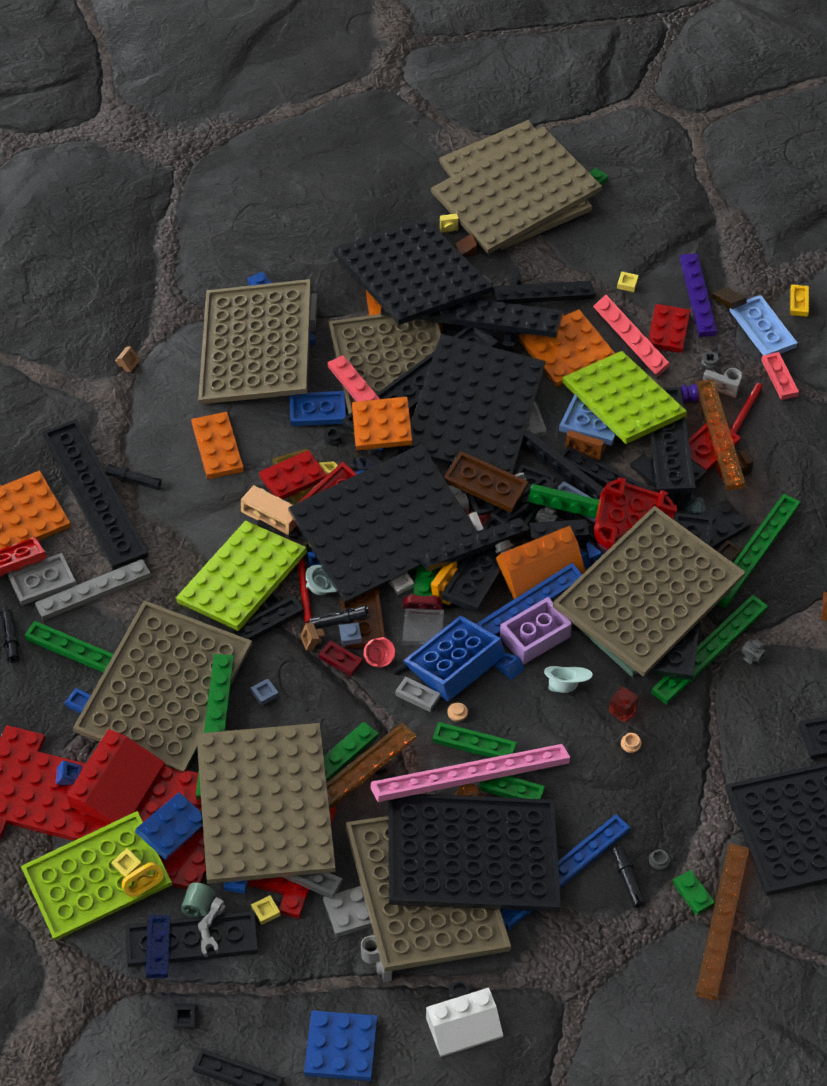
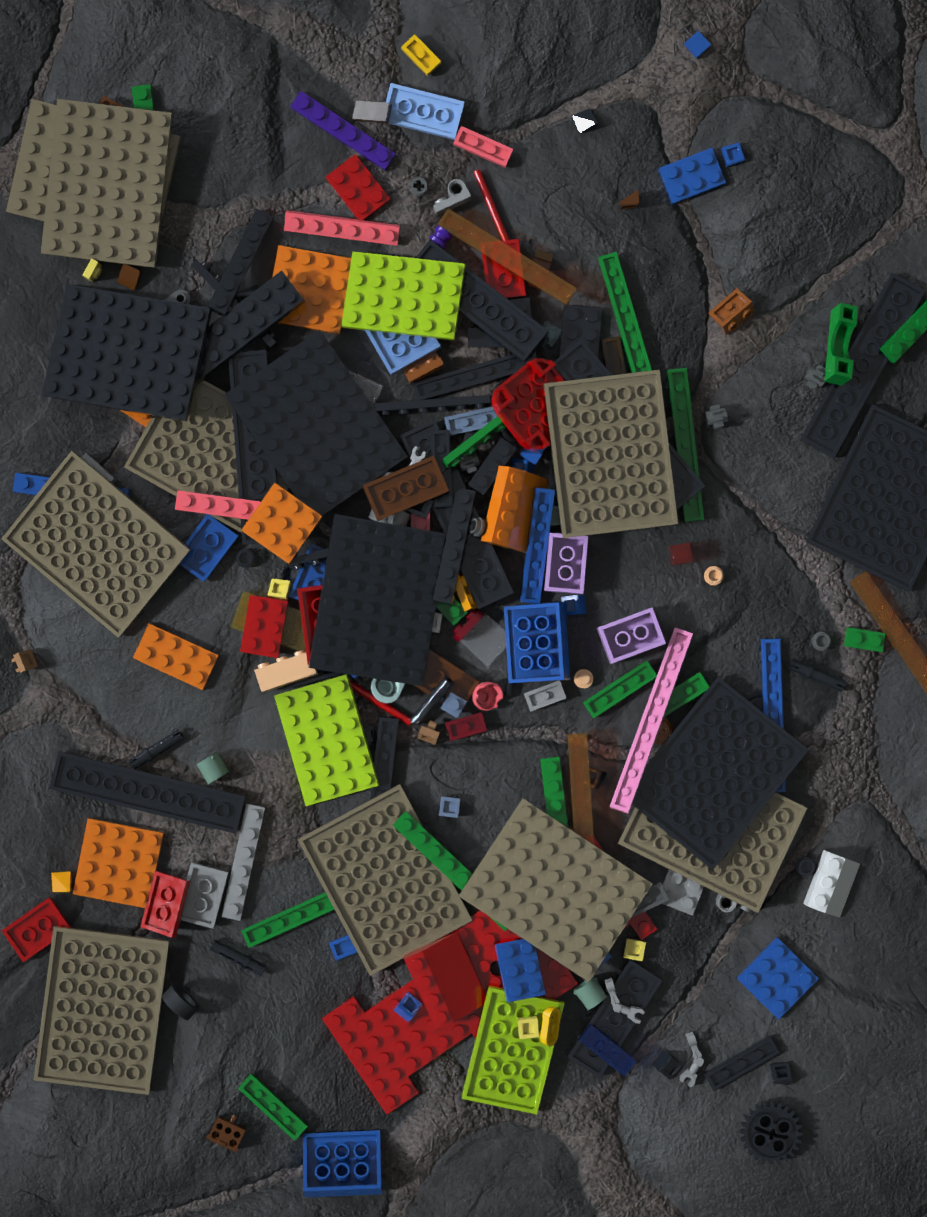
camera: 50 degrees left, 35 degrees up
(151, 517) = (212, 768): none -> sand green piece
(209, 1035) = (697, 1062): none -> light grey piece
(475, 521) = (430, 526): white tile -> none
(524, 714) = (631, 635): none -> lavender brick
(566, 678) = (625, 574): light aqua piece -> none
(627, 281) = (282, 177): light yellow plate -> none

